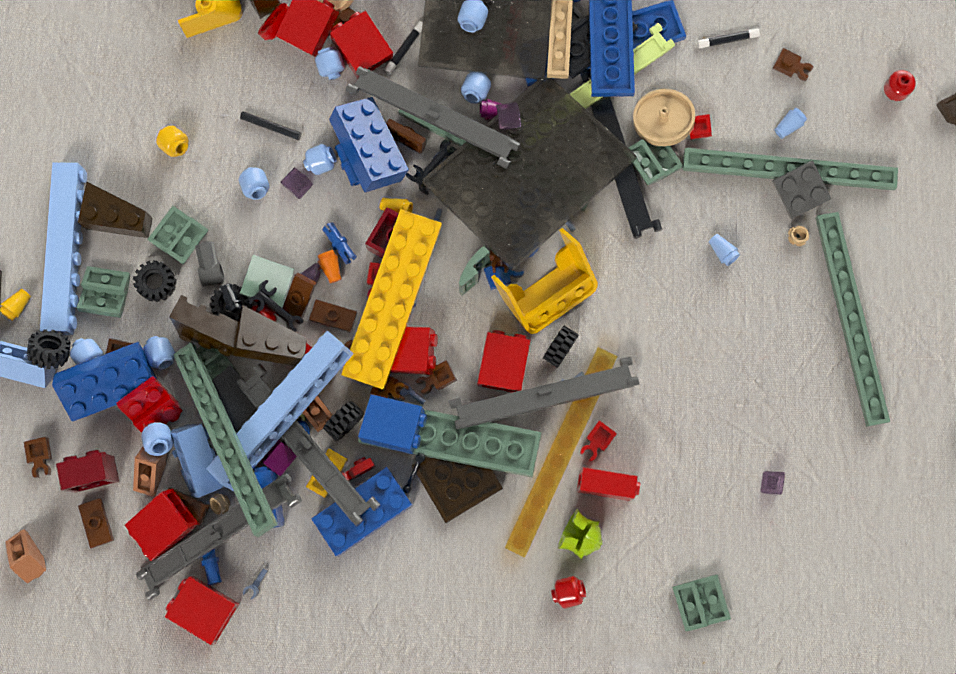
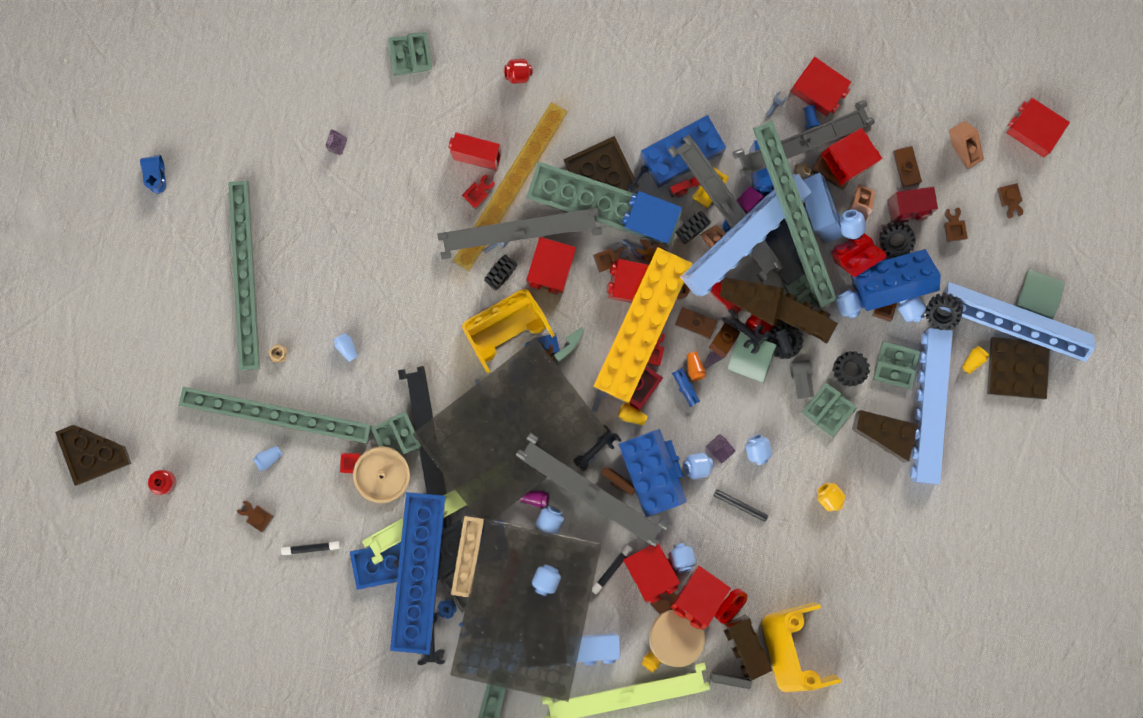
camera: 175 degrees left, 5 degrees up
(107, 440) = (893, 229): none -> black tyre
(508, 115) = (523, 485): clear purple slope -> none
(581, 535) = (503, 113): lime helmet -> none
(801, 189) = (268, 393): dark grey plate -> none

